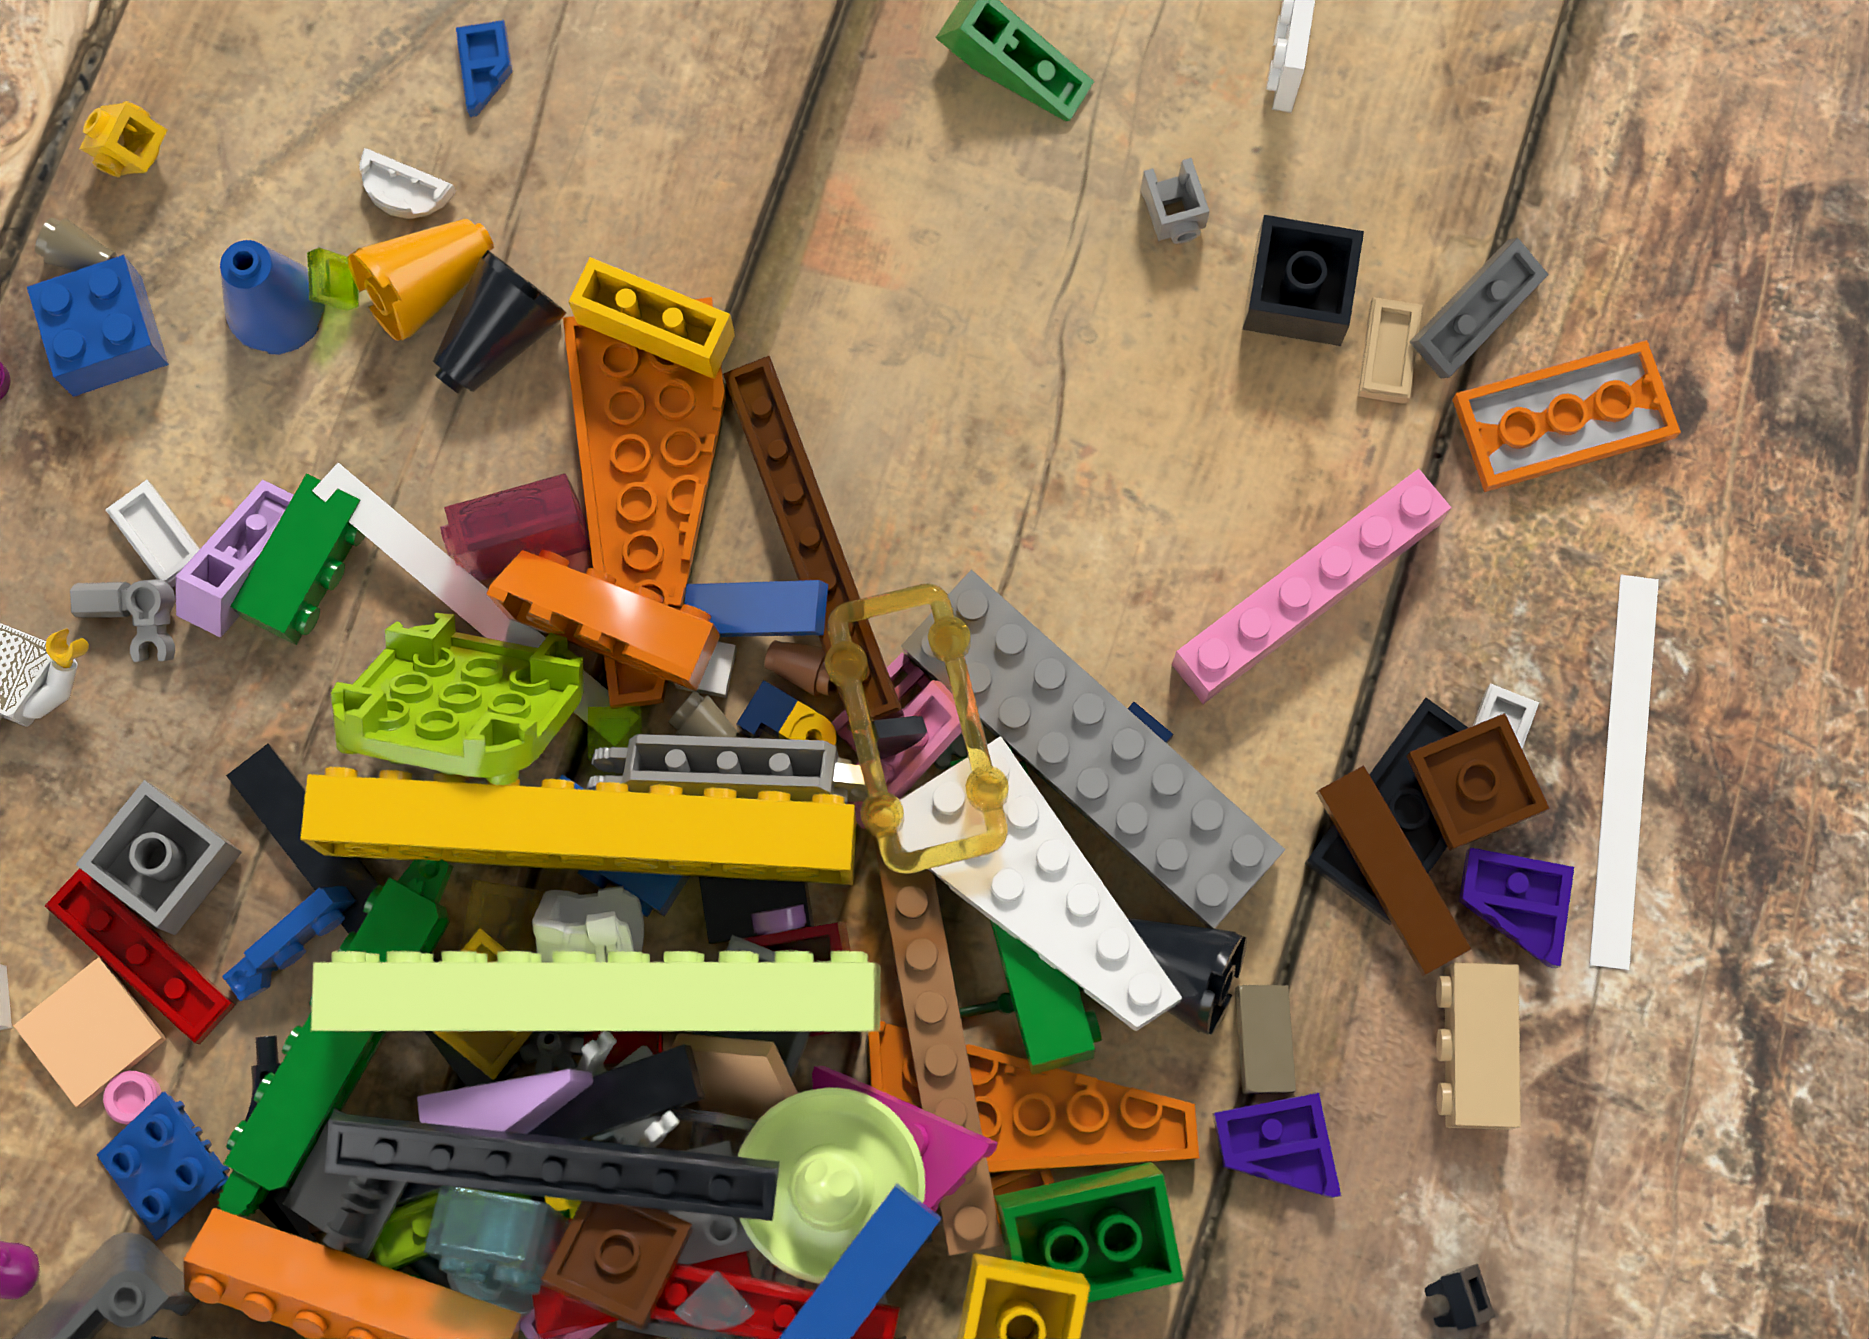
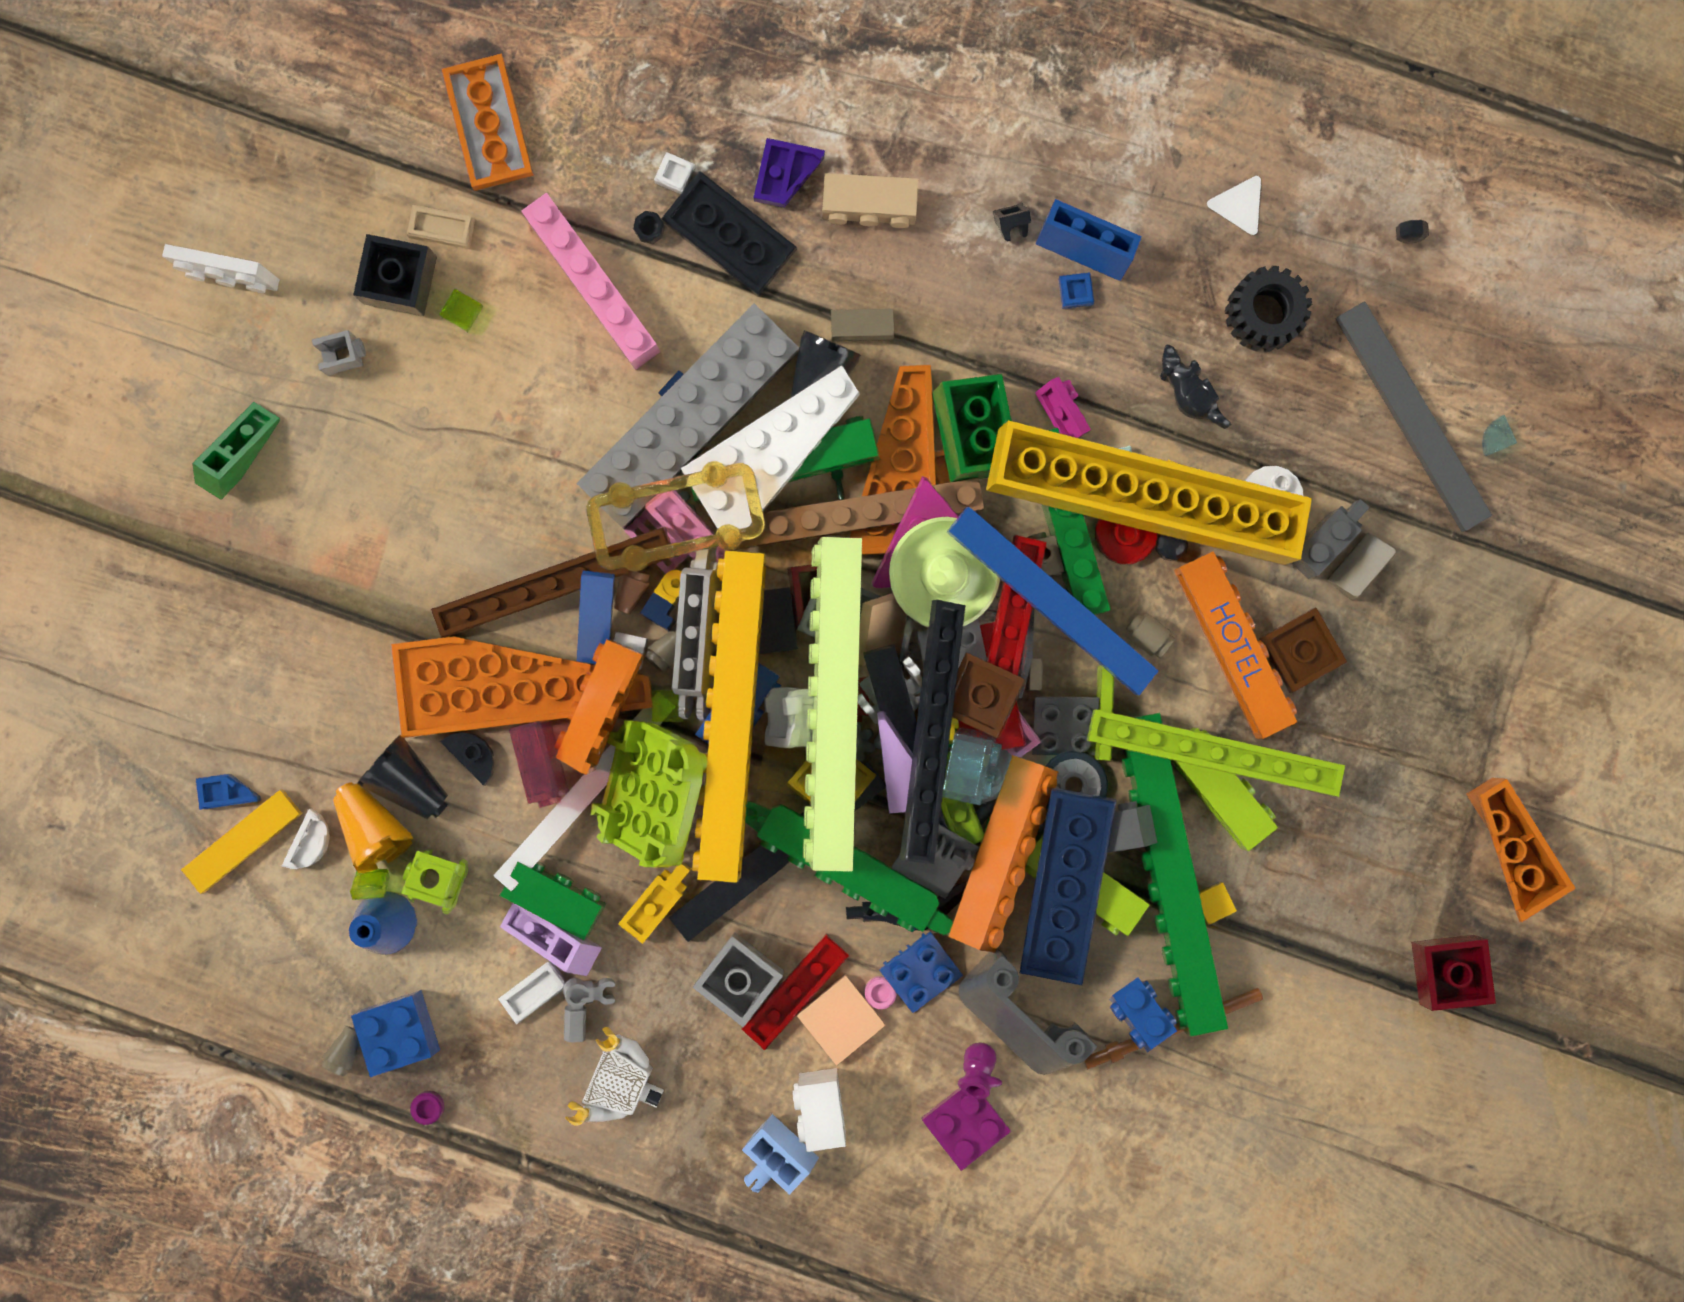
camera: 90 degrees left, 10 degrees up
(122, 139) = (269, 1022): yellow brick -> none
(286, 940) = (791, 901): blue hinge -> none
(289, 720) = (655, 903): none -> yellow hinge
(334, 395) = (449, 885): none -> lime piece
(406, 91) = (241, 841): none -> yellow tile
(538, 429) = (472, 753): none -> black plate
(652, 317) = (406, 678): yellow brick -> none
(715, 1305) = (1012, 639): clear light blue tile -> none
(778, 919) = (786, 604): medium lavender tile -> none
(898, 734) = (677, 528): black tile -> none
(1254, 386) = (461, 310): none -> clear neon green tile
(1280, 1143) = (922, 318): dark purple wing -> none
(1393, 870) = (765, 243): reddish brown tile -> none
(1409, 678) = (649, 227): none -> black tile
(1477, 782) = (715, 189): reddish brown plate -> none
(1479, 308) = (416, 169): dark grey plate -> none
(1624, 773) = (707, 105): white sticker -> none

